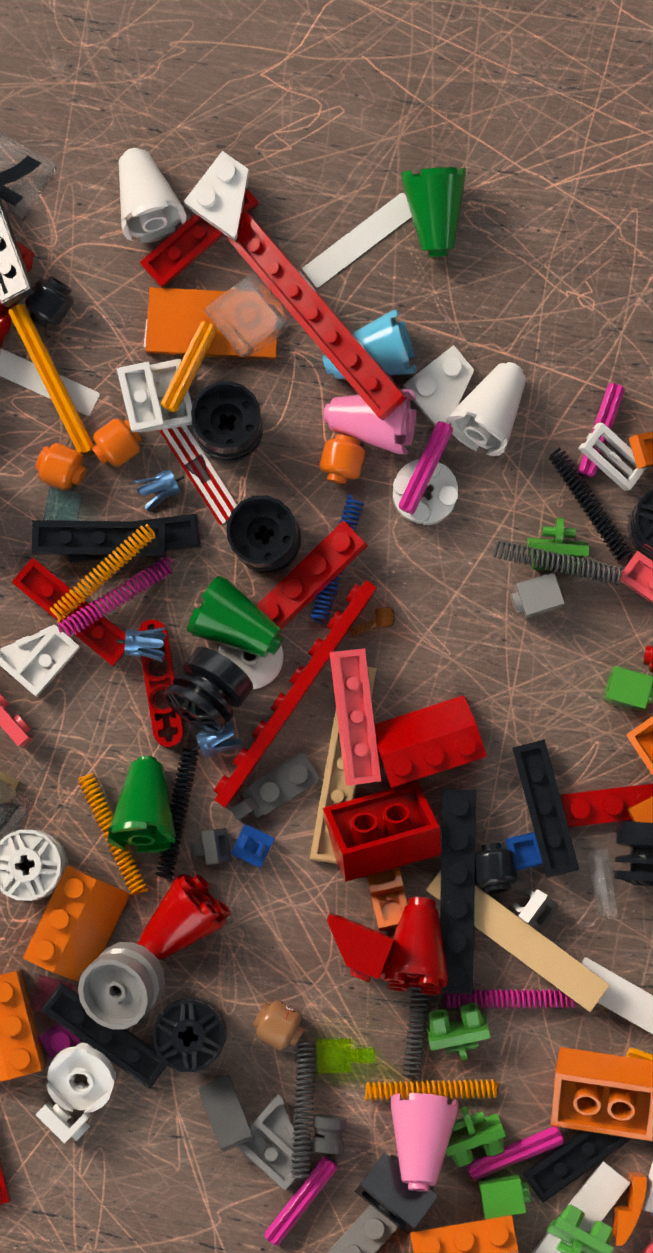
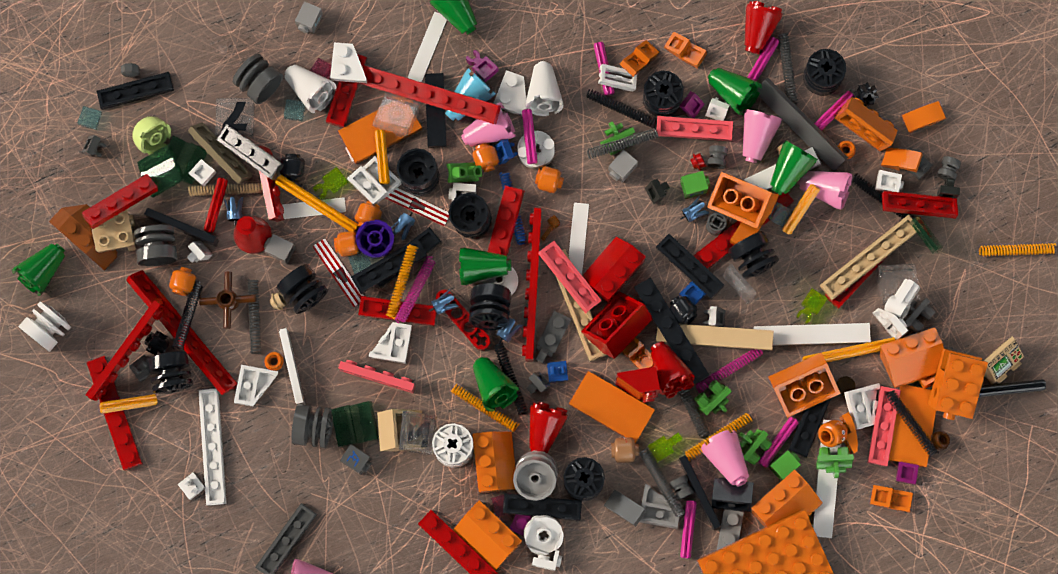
camera: 30 degrees left, 5 degrees down
(23, 497) = (338, 271): none -> sticker
(76, 139) = (257, 79): none -> dark grey wheel
(97, 360) = (332, 181): none -> clear neon green plate
(101, 485) = (375, 239): none -> dark purple cylinder
(104, 218) = (294, 110): none -> clear light blue tile
(181, 179) = (321, 68): none -> clear pink tile
(208, 91) = (308, 18): none -> light grey brick
(280, 488) = (461, 188): none -> white bracket
(294, 462) = (463, 172): none -> bright green hips
(299, 948) = (611, 406): none -> orange tile
(304, 354) = (435, 116): none -> black tile
(350, 1158) = (699, 492): none -> black tile
(376, 466) = (504, 151): none -> blue tile
(408, 660) = (578, 235): none -> white sticker
(416, 549) = (549, 179): none -> orange head
(422, 320) = (483, 68): none -> magenta plate
(566, 663) = (656, 190): none -> pearl dark grey tile
(602, 1196) = (832, 433): none -> orange head
(603, 728) = (690, 212): none -> flat silver piece
(620, 770) = (715, 227): none -> dark grey wheel

